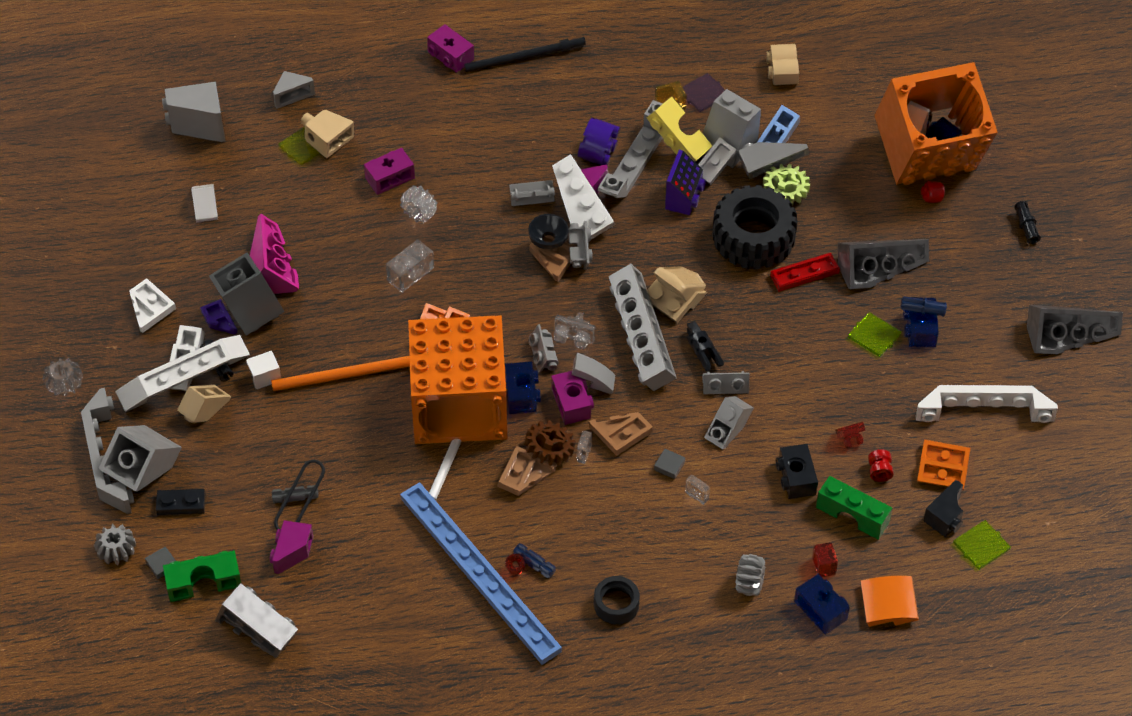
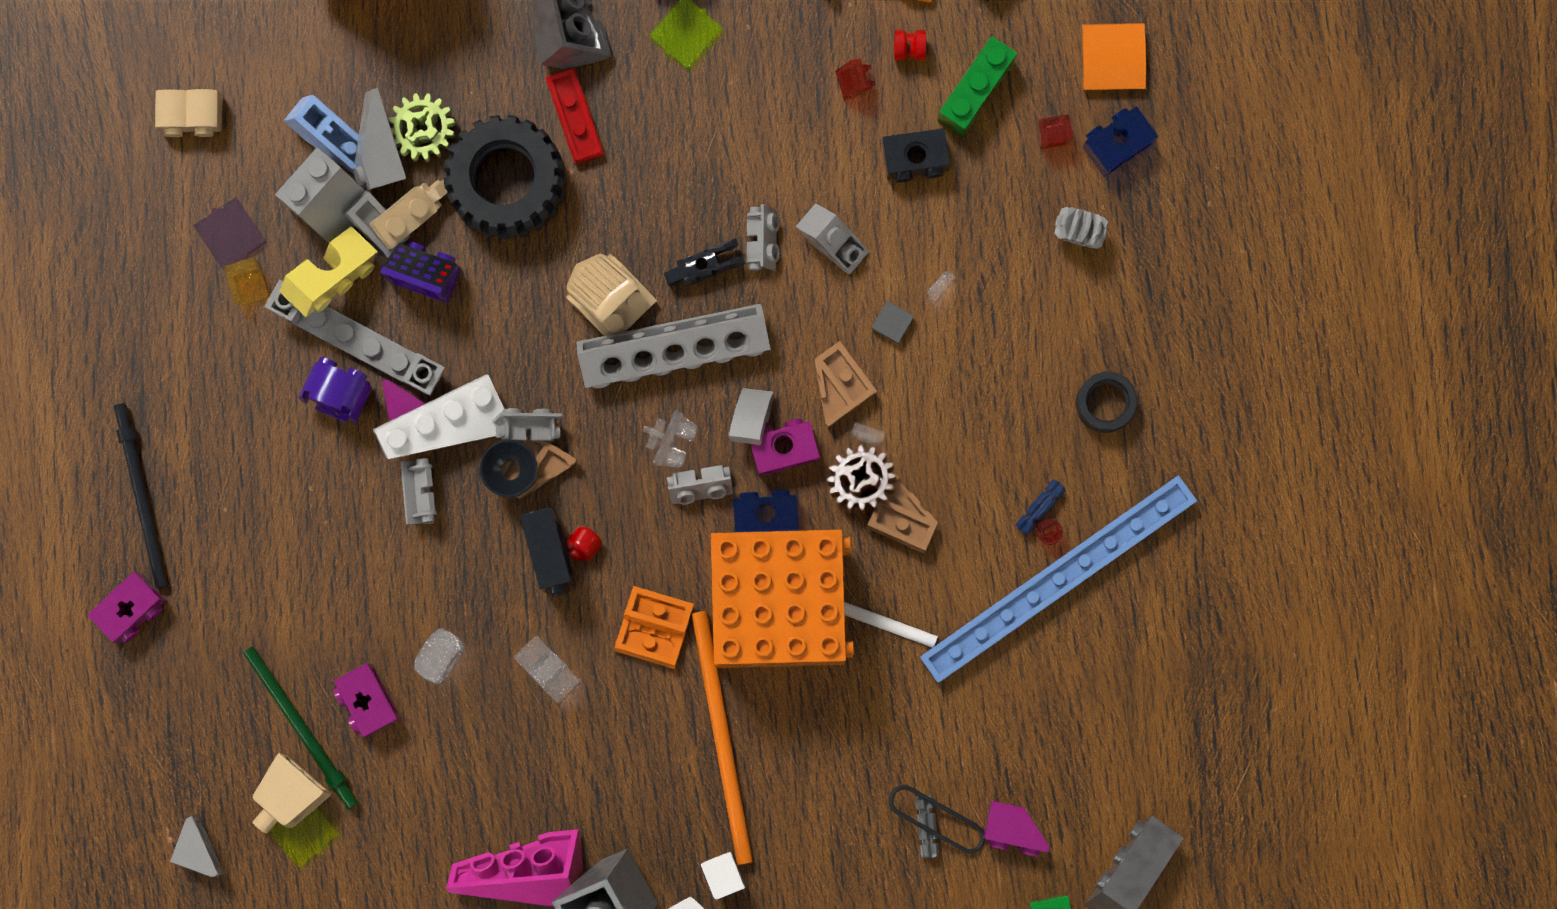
camera: 80 degrees left, 30 degrees up
(337, 158) = (334, 778): none -> dark green bar
(487, 247) = (548, 551): none -> black window
(498, 285) = (583, 544): none -> red piece
(721, 173) = (408, 213): none -> tan hinge

